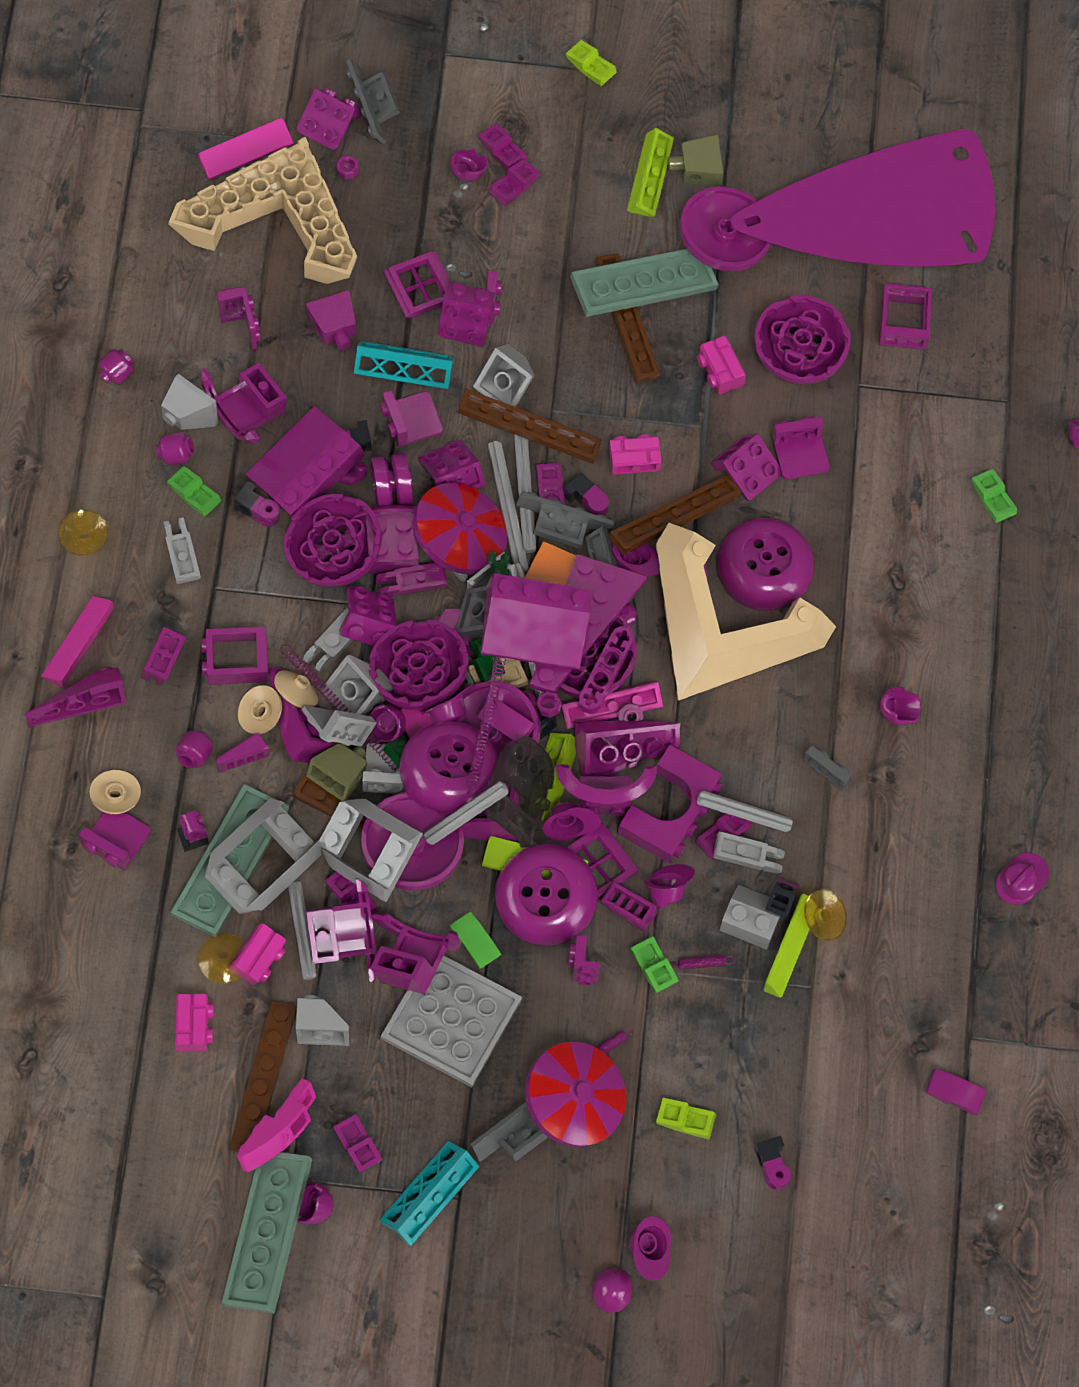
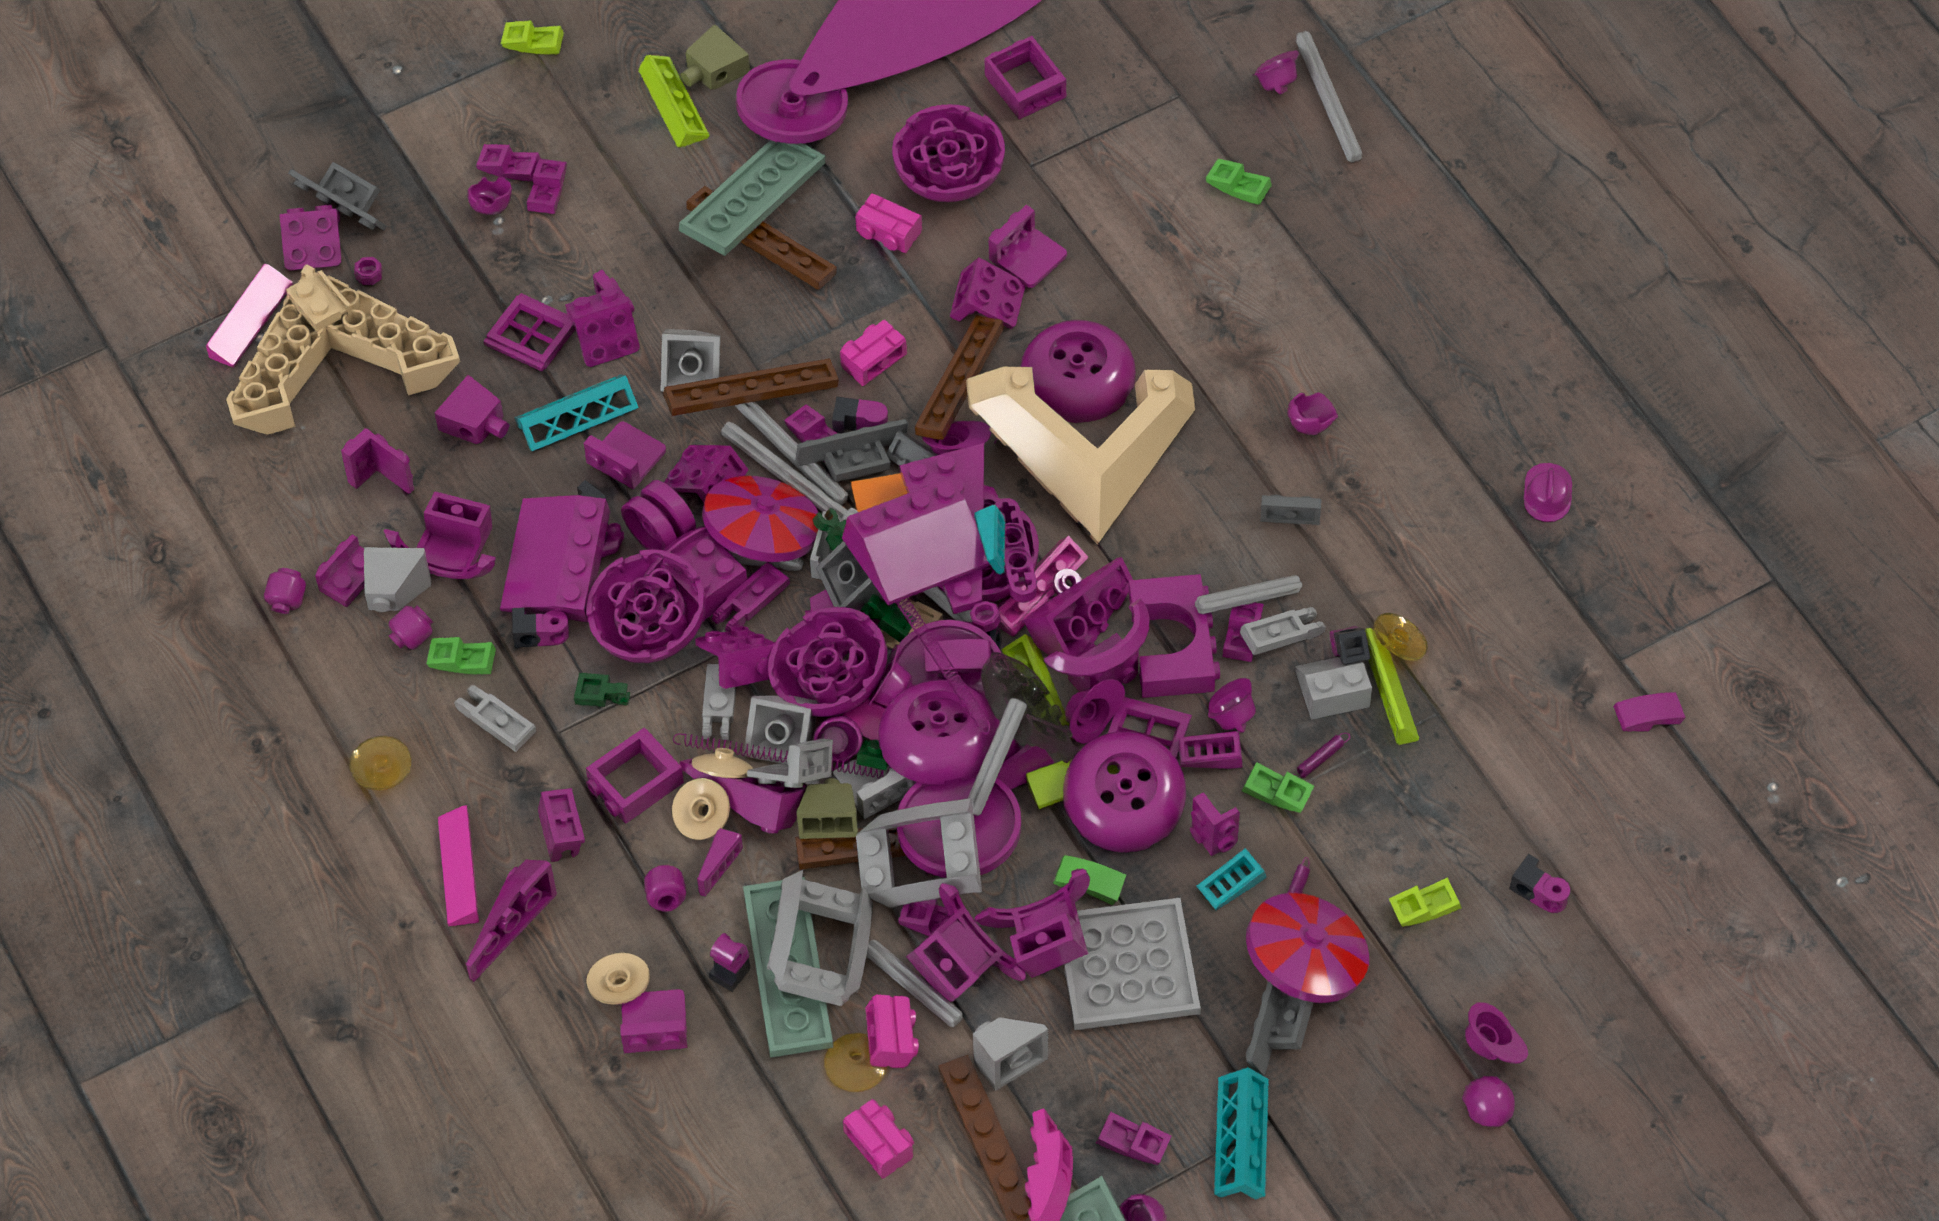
camera: 30 degrees left, 10 degrees down
(159, 377) = (343, 573): none -> magenta bracket
(261, 576) = (596, 689): none -> dark green plate
(290, 170) = (318, 300): none -> tan plate
(569, 1017) = (1233, 865): none -> teal slope
(594, 649) = (992, 534): none -> teal slope

